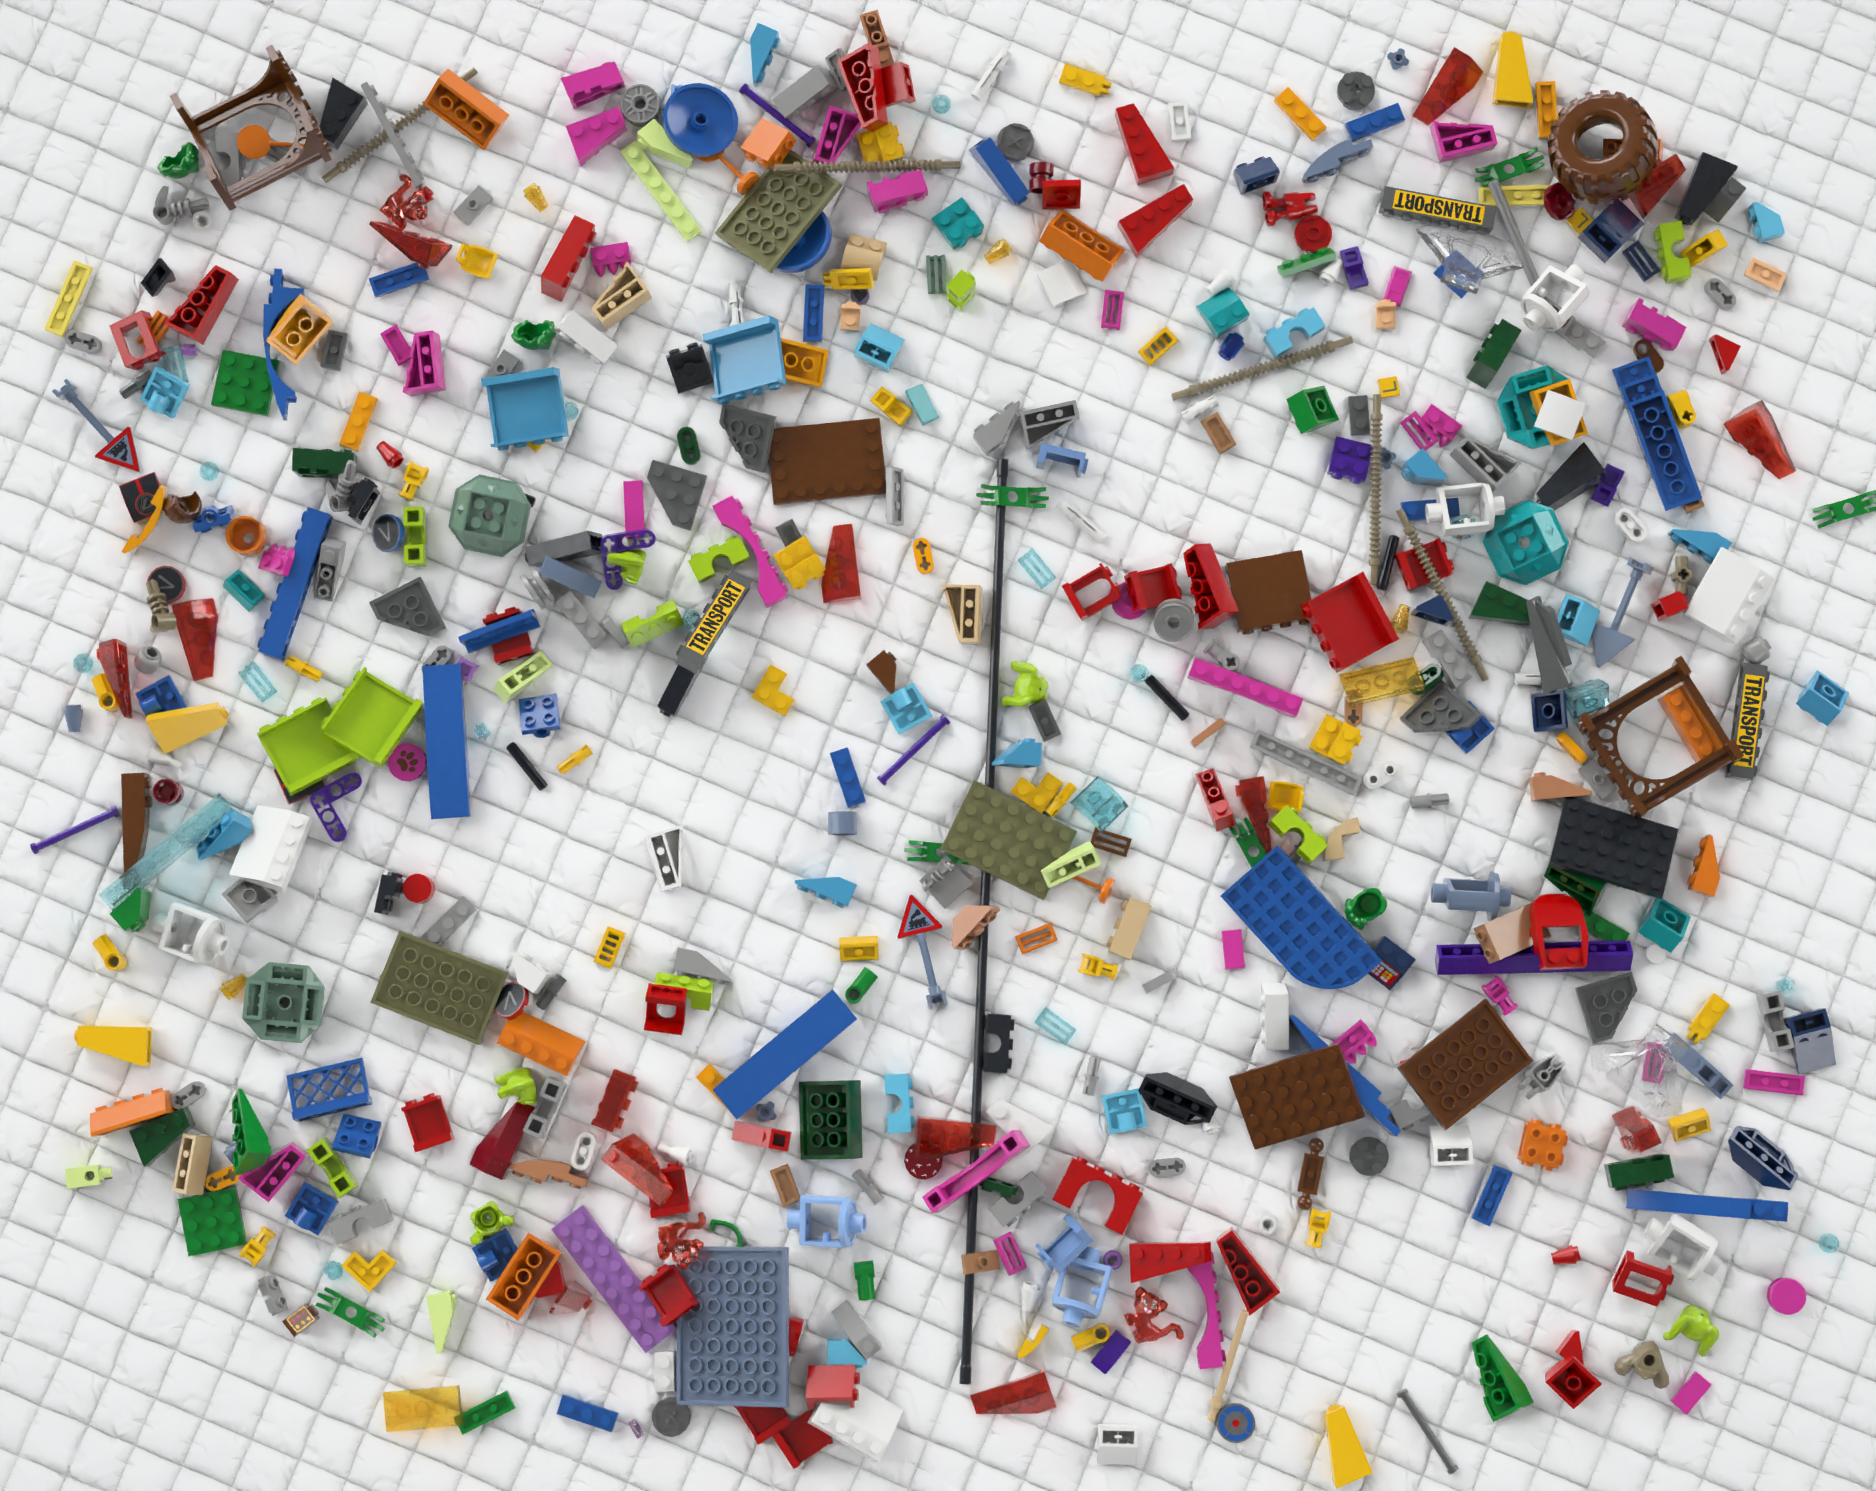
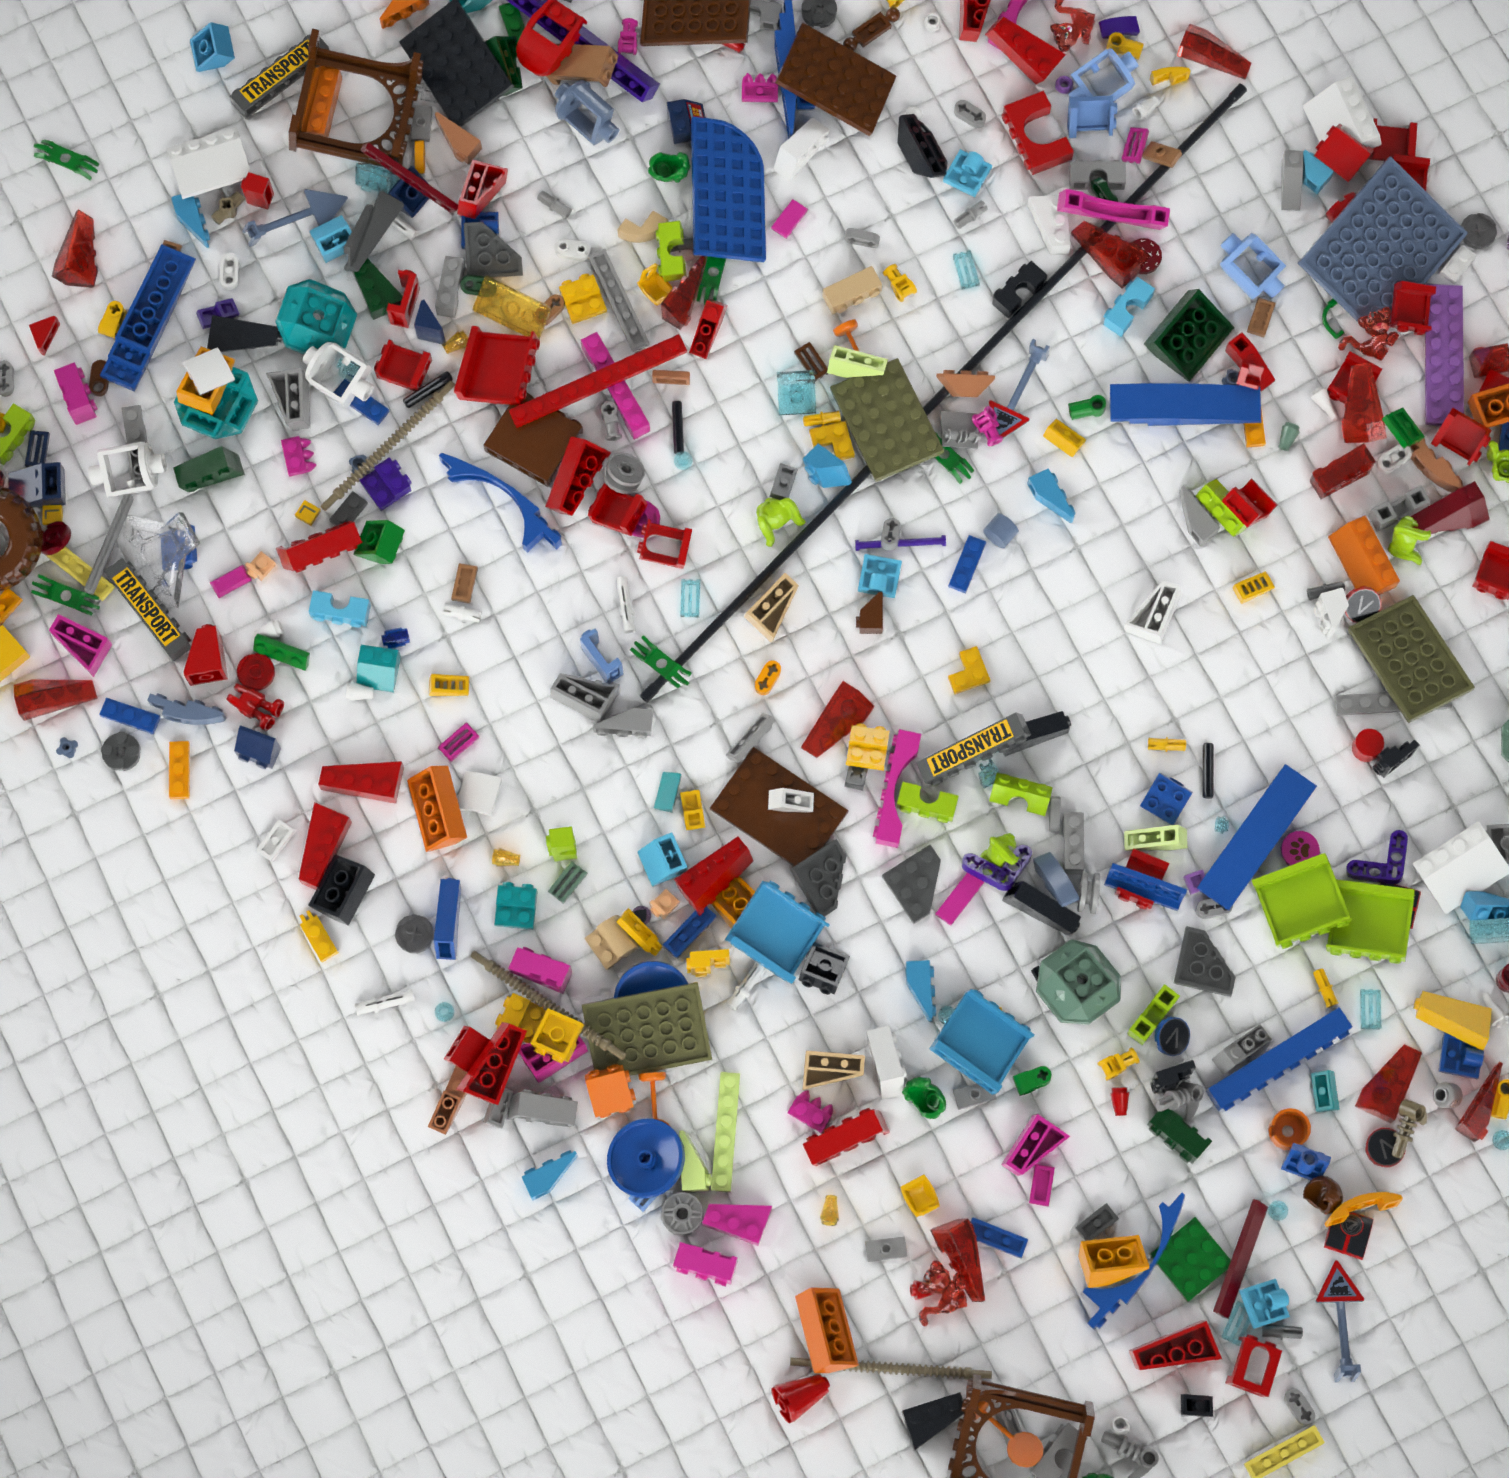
camera: 140 degrees left, 10 degrees down
(158, 319) = (1229, 1366): orange tile -> none
(189, 349) = (1216, 1323): medium lavender plate -> none
(208, 411) = (1240, 1259): none -> dark red tile
(277, 560) = (1280, 1088): dark pink plate -> none
(358, 421) = (1123, 1150): light orange plate -> none
(389, 128) = (902, 1366): light grey plate -> none
(446, 49) = (799, 1395): none -> red cone
(468, 412) = (1028, 1081): none -> green piece
(541, 1213) = (1462, 436): none -> red panel
(592, 1175) = (1403, 427): none -> green plate
(611, 417) = (919, 983): none -> dark azure slope
(682, 1099) = (1288, 435): none -> sand green cone
(688, 446) = (875, 909): dark green plate -> none
(751, 1119) = (1250, 375): none -> panel
(777, 115) = (580, 1114): dark purple bar -> none
(782, 293) = (700, 961): none -> yellow plate
(820, 469) = (790, 800): none -> white slope
(830, 366) = (713, 874): none -> red wedge
(837, 143) = (557, 1036): none -> yellow plate
(865, 1277) = (1255, 211): green piece -> none
(867, 1186) = (1200, 269): light grey axle -> none
(925, 903) = (987, 423): none -> dark pink connector
(928, 746) = (894, 535): none -> light grey beam
(1021, 944) = (909, 341): orange tile -> none
(1039, 172) = (422, 883): dark red wheel -> none
(1061, 194) = (418, 856): red tile -> none
(1096, 125) = (341, 889): none -> black slope
(1206, 521) = (534, 527): none -> blue slope
(1257, 673) = (598, 381): none -> red plate
(1330, 346) = (452, 630): dark tan hose -> none
(1352, 363) = (319, 546): none -> red wedge
(1354, 268) = (250, 620): dark purple slope -> none
(1357, 209) = (206, 657): none -> red slope
(1410, 418) = (314, 476): dark pink tile -> none
(1410, 531) = (391, 394): dark tan hose -> none
(1422, 470) = (342, 431): dark azure slope -> none
(1466, 615) = (402, 314): none -> red panel
(1498, 758) = (480, 187): none -> red wedge
(1557, 713) = (410, 178): none -> dark red tile
(1756, 650) = (226, 115): light grey head -> none

